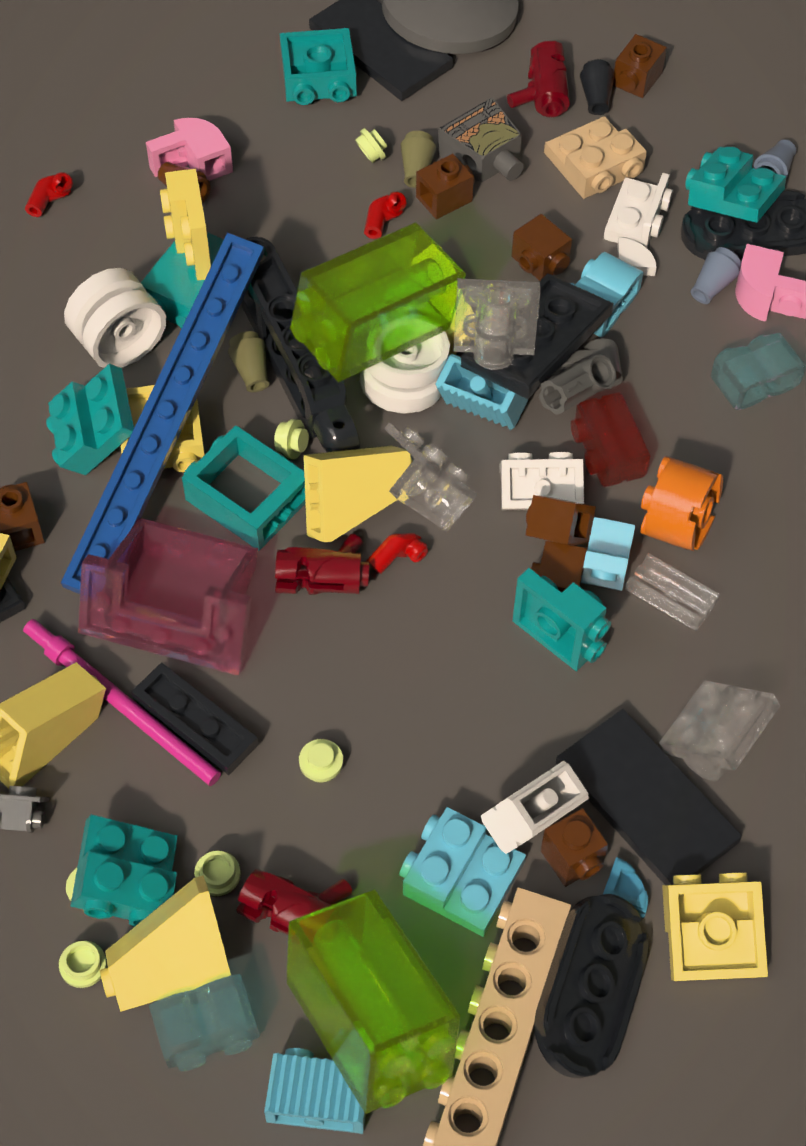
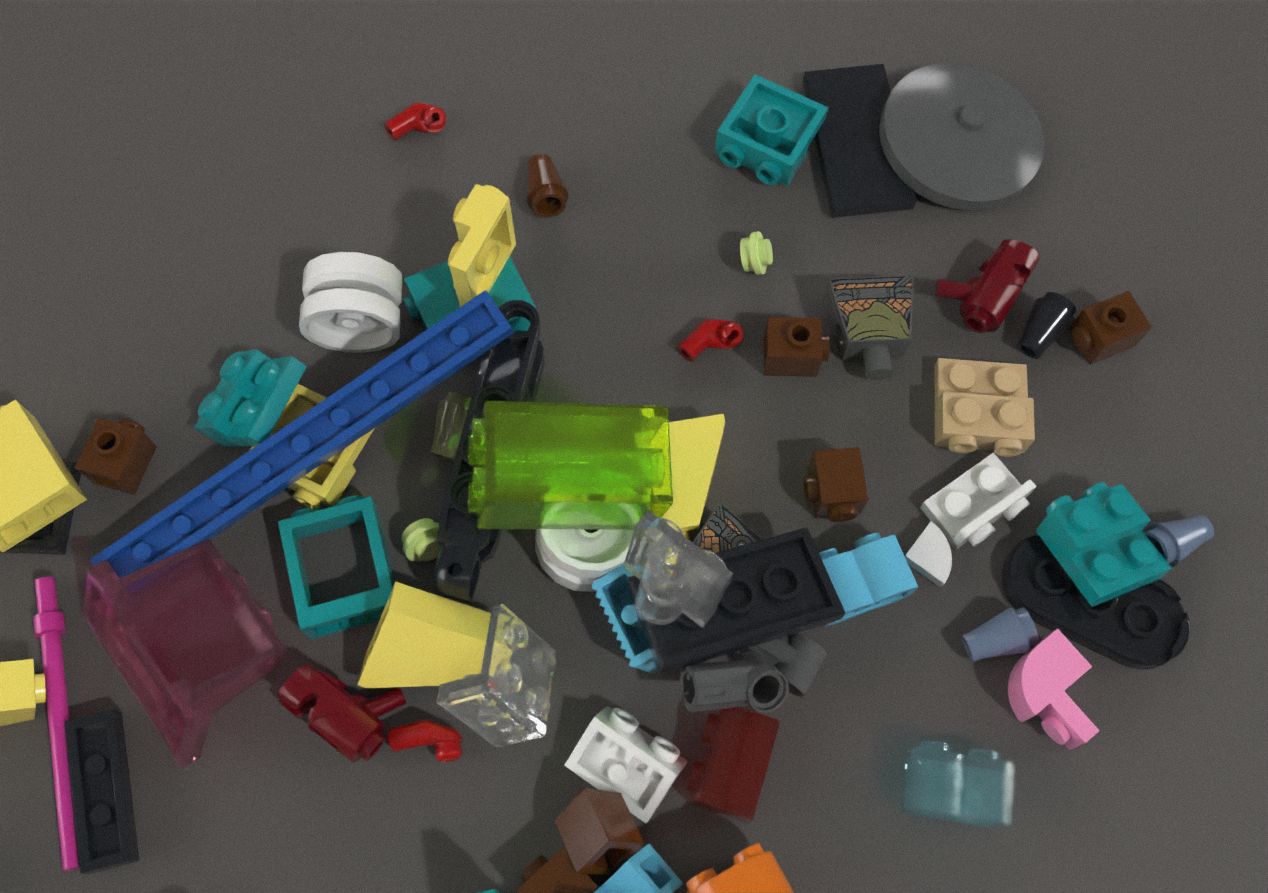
camera: 35 degrees right, 10 degrees up
(192, 144) = (582, 149): bright pink brick -> none
(417, 153) = (793, 293): olive cone -> none

